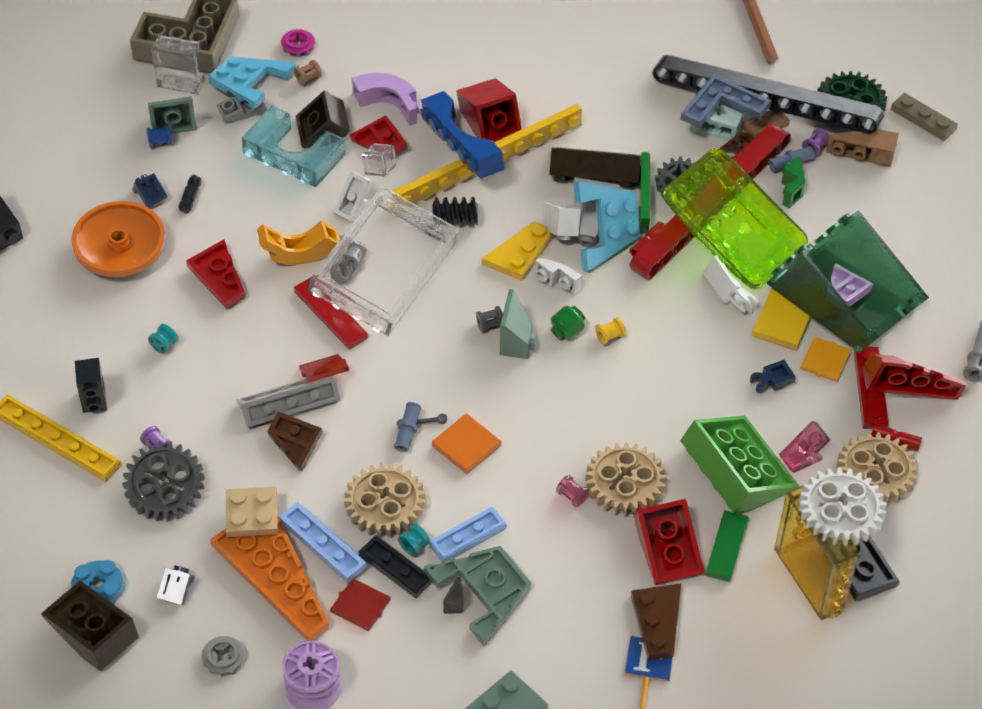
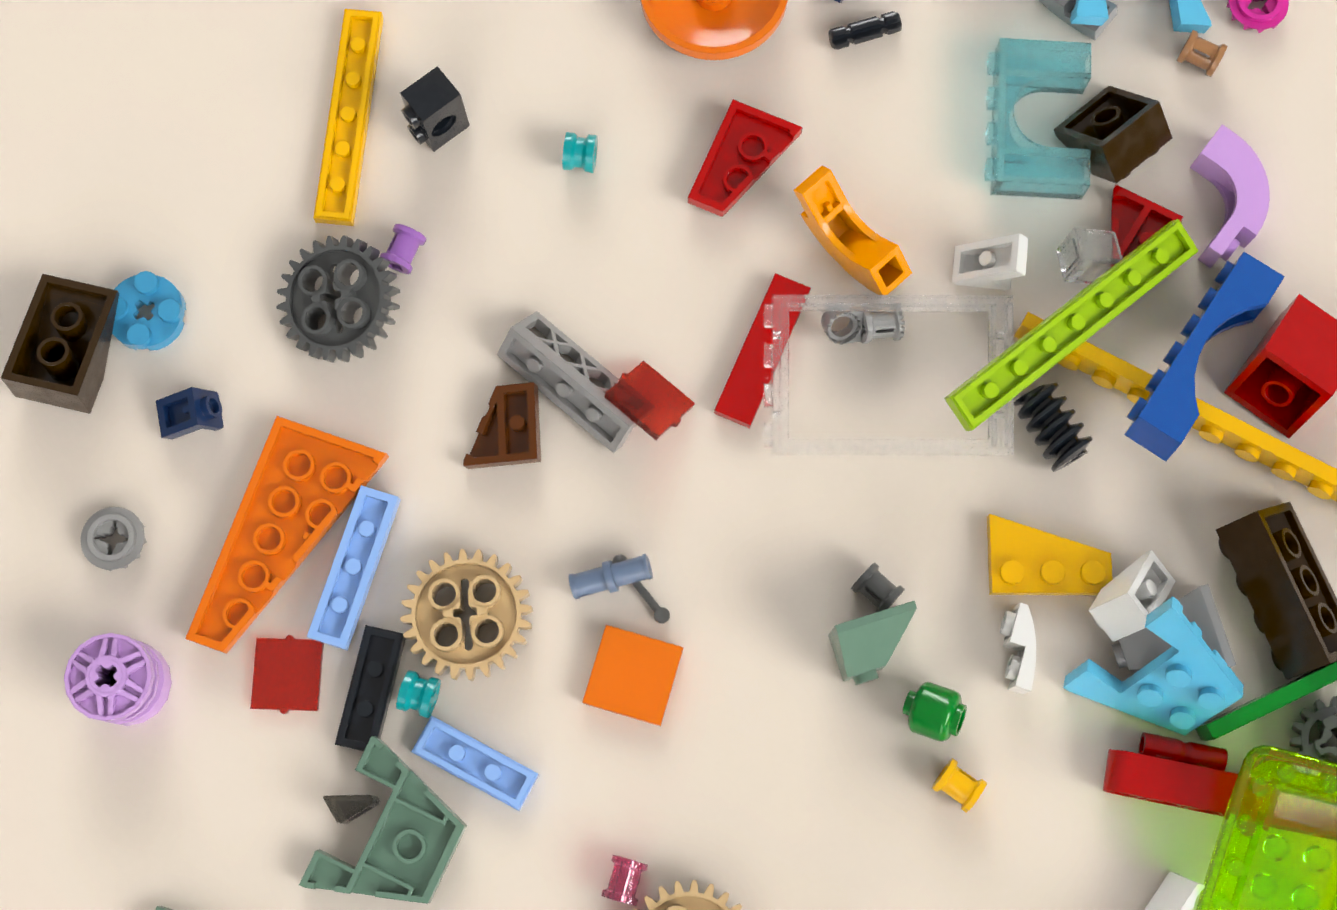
camera: 65 degrees right, 25 degrees up
(251, 511) = (343, 446): tan plate -> none
(411, 175) = (1070, 325): none -> lime tile

